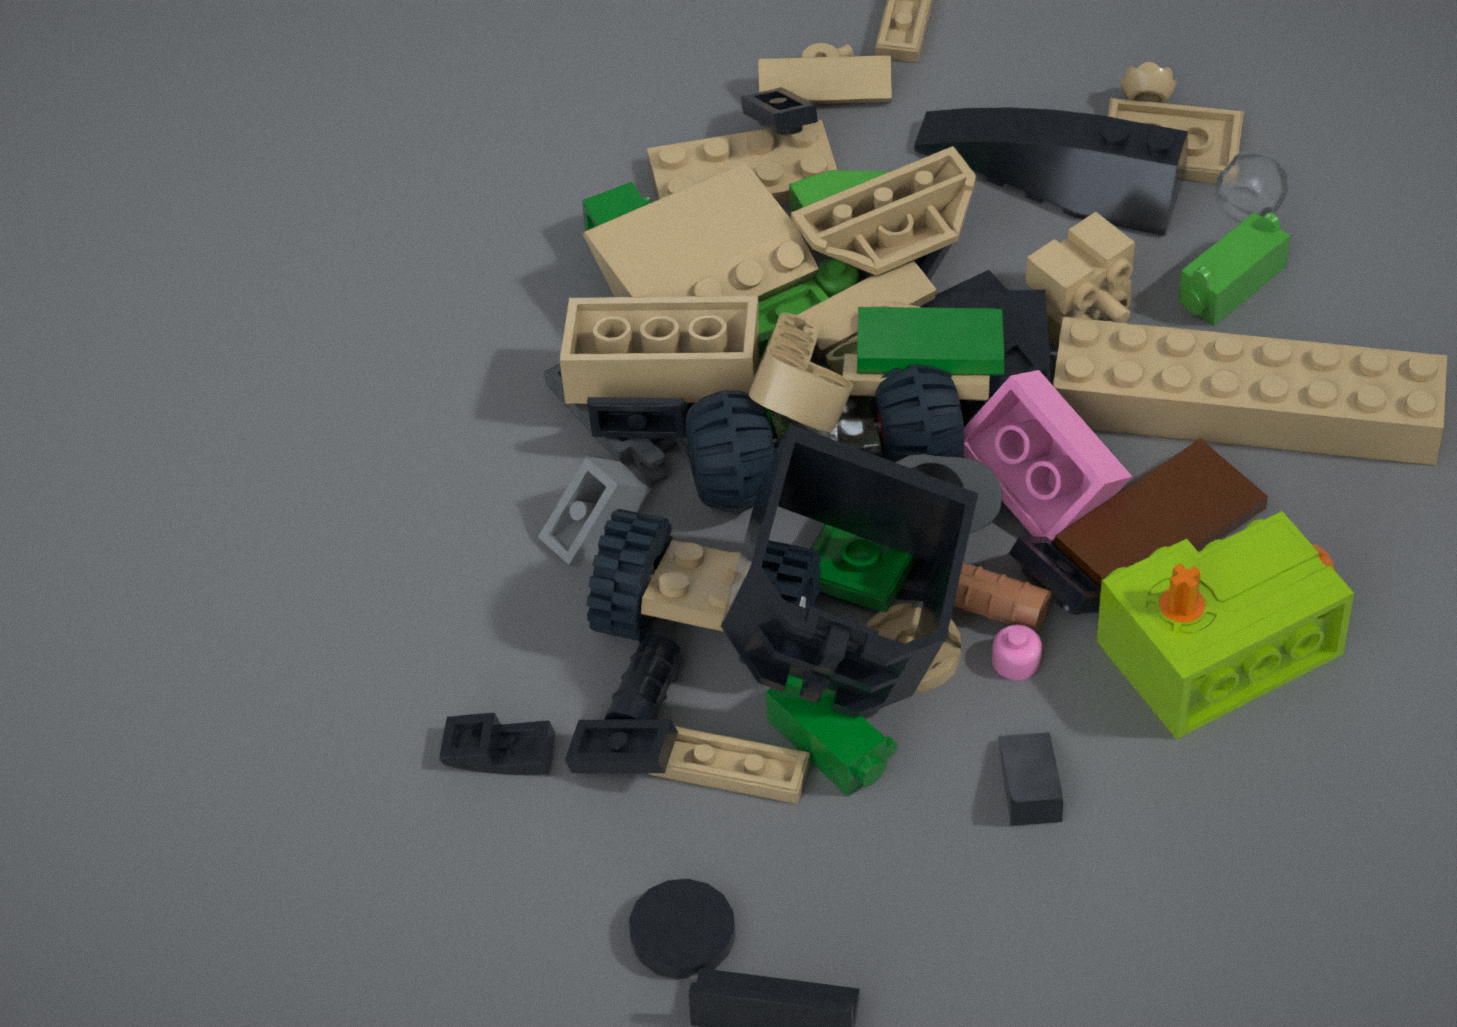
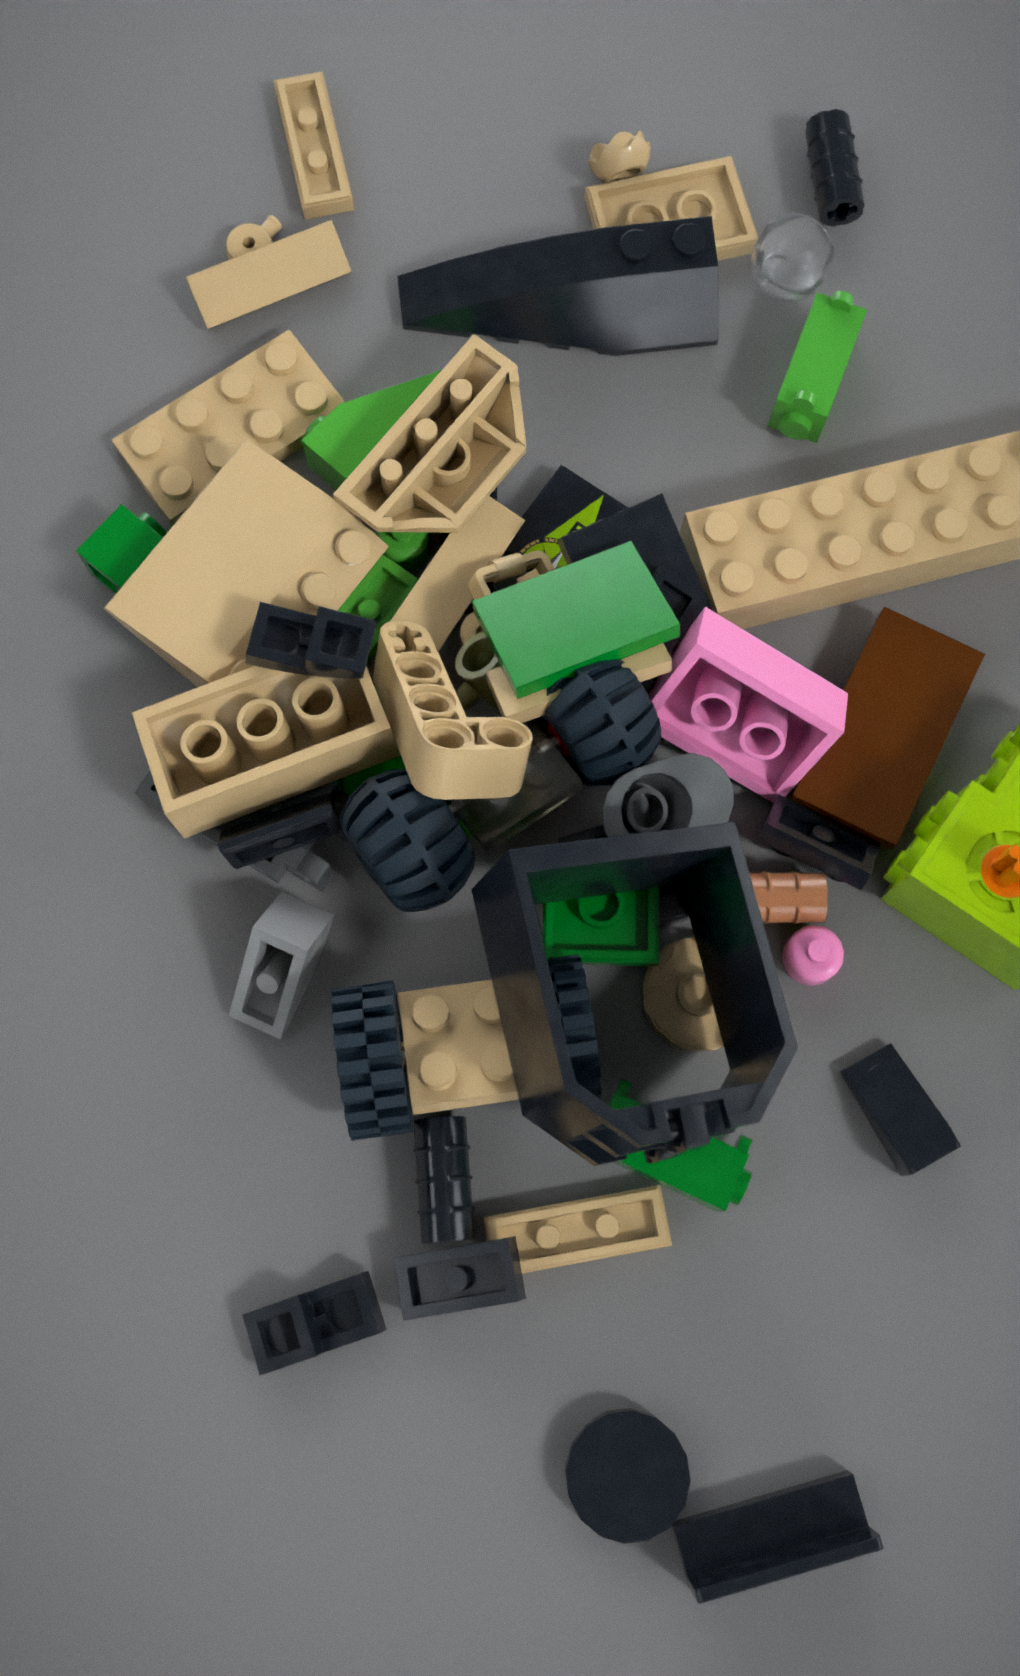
camera: 30 degrees left, 25 degrees up
(721, 292) = (310, 645): none -> black slope
(779, 110) = (243, 341): black plate -> none
(1084, 274) = (685, 448): tan brick -> none
(1325, 143) = (834, 167): none -> black axle

